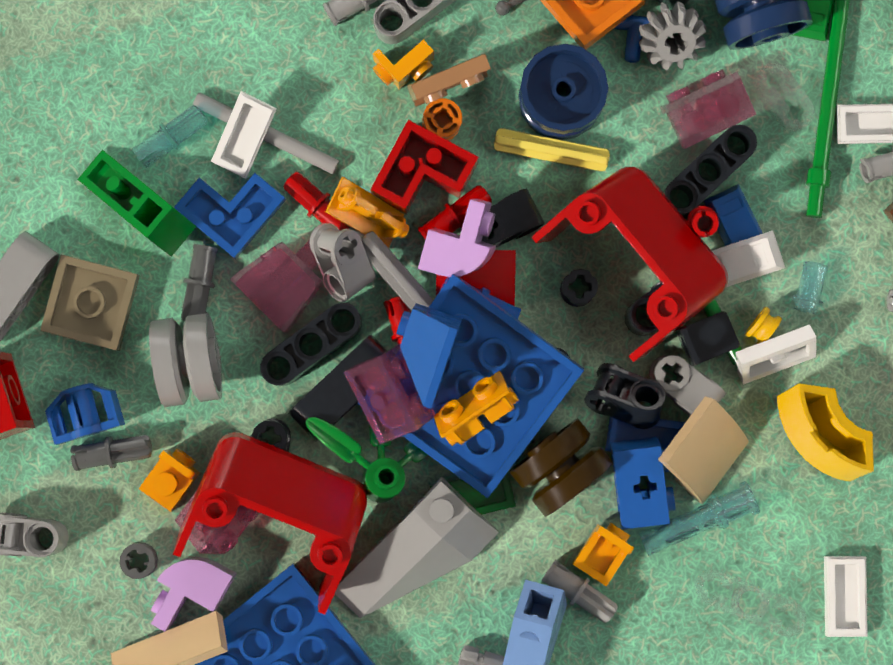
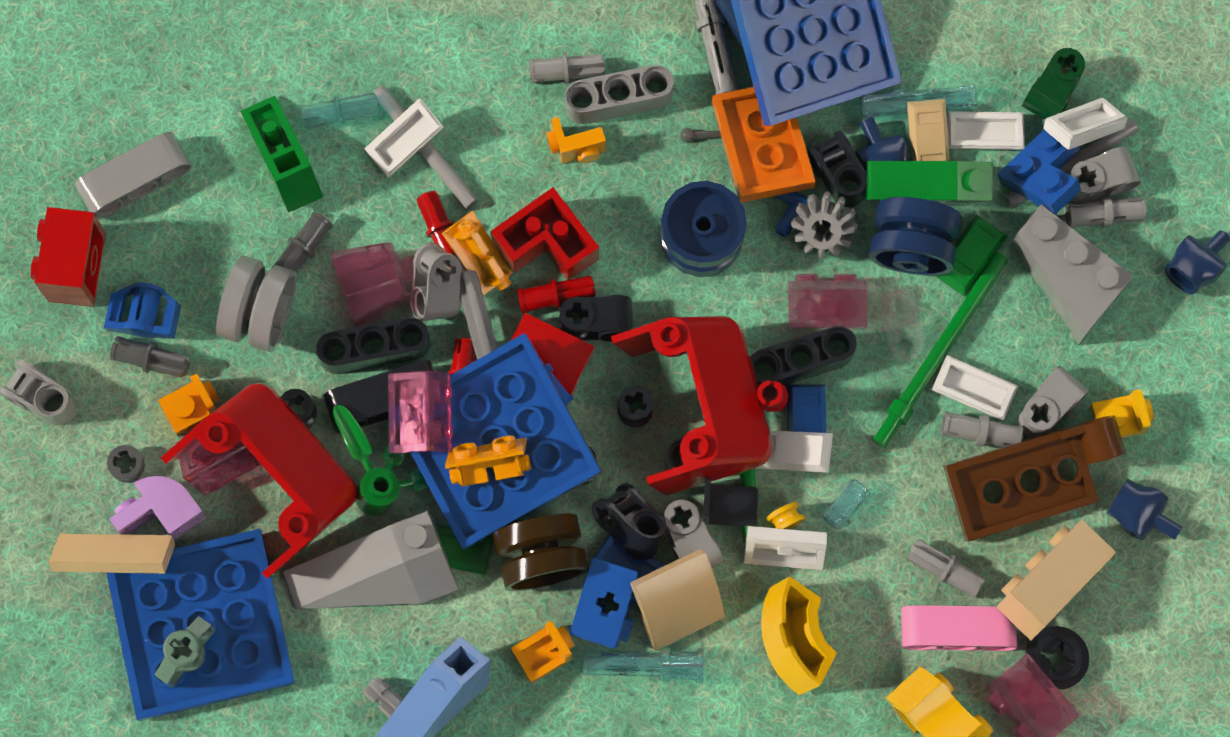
camera: 25 degrees right, 10 degrees down
(90, 302) = (197, 220): dark tan plate -> none
(233, 222) = (359, 209): blue plate -> none
(427, 347) = (471, 385): blue slope -> none
(435, 86) = (607, 171): medium nougat plate -> none
(441, 124) = (587, 213): orange wheel -> none
(463, 253) = (547, 323): lavender brick -> none
(551, 149) = (670, 276): light yellow axle -> none
(580, 592) = (506, 678): light grey axle -> none

